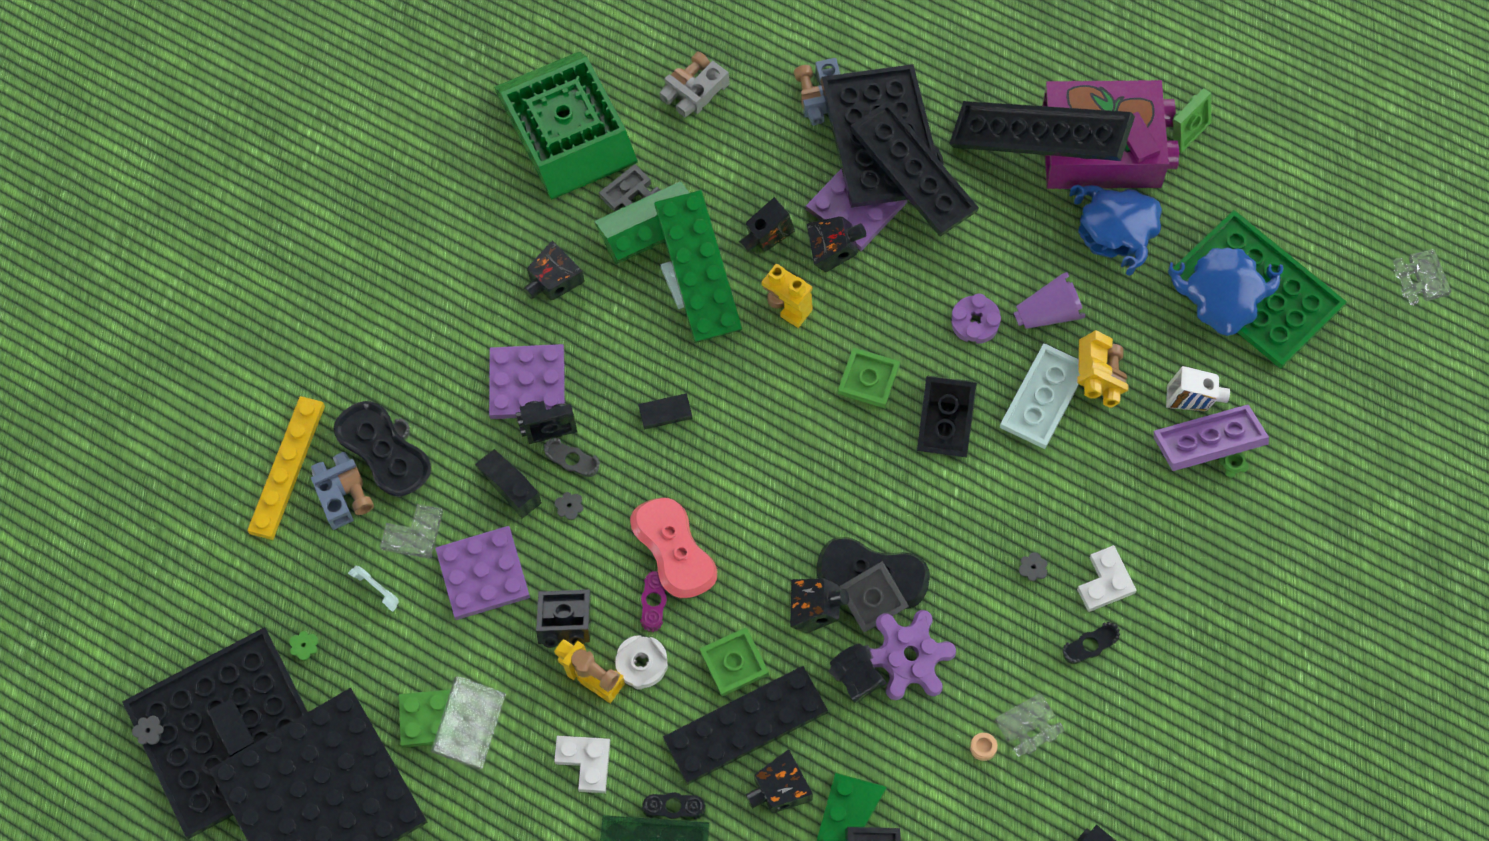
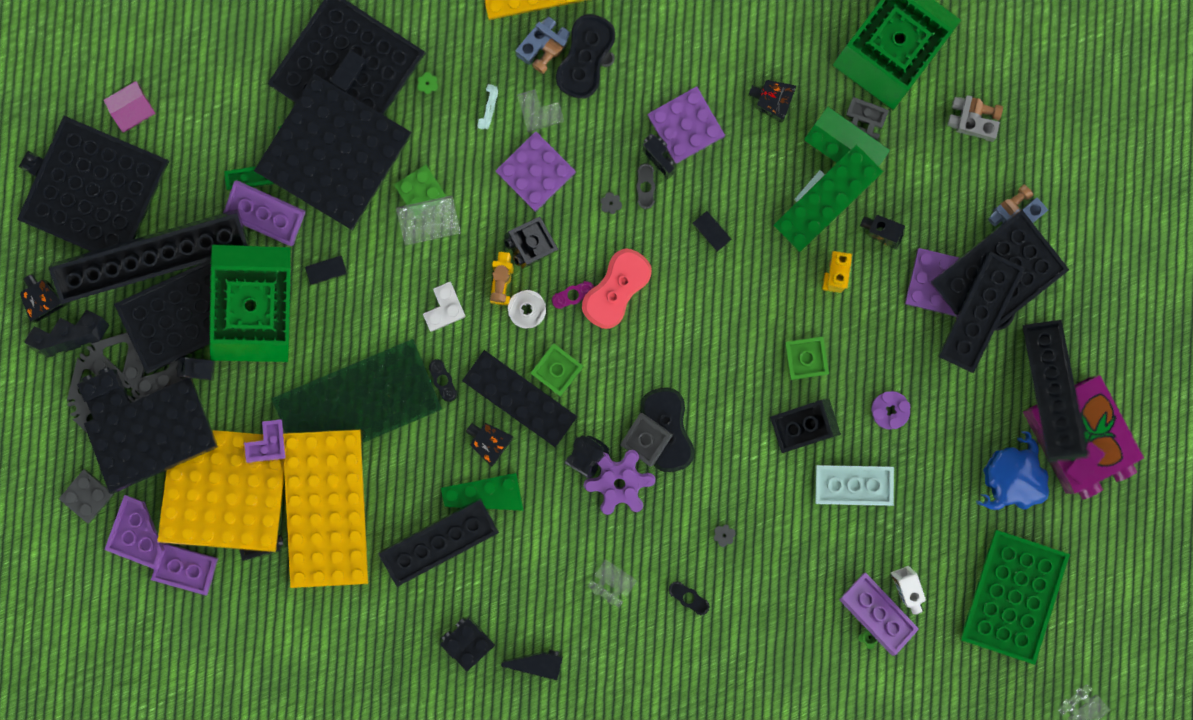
camera: 65 degrees right, 20 degrees up
(152, 724) = (316, 14): dark grey plant -> none
(509, 483) = (606, 153): black slope -> none
(815, 603) = (621, 404): black torso -> none
(833, 241) = (897, 283): black torso -> none
(983, 746) = (582, 560): light nougat tile -> none
(1050, 305) = (925, 459): medium lavender cone -> none
(1098, 376) = (888, 516): yellow hips -> none
(1112, 583) = (739, 594): white plate -> none
(1192, 119) = (1127, 493): bright green plate -> none
(1226, 288) = (996, 577): blue piece -> none

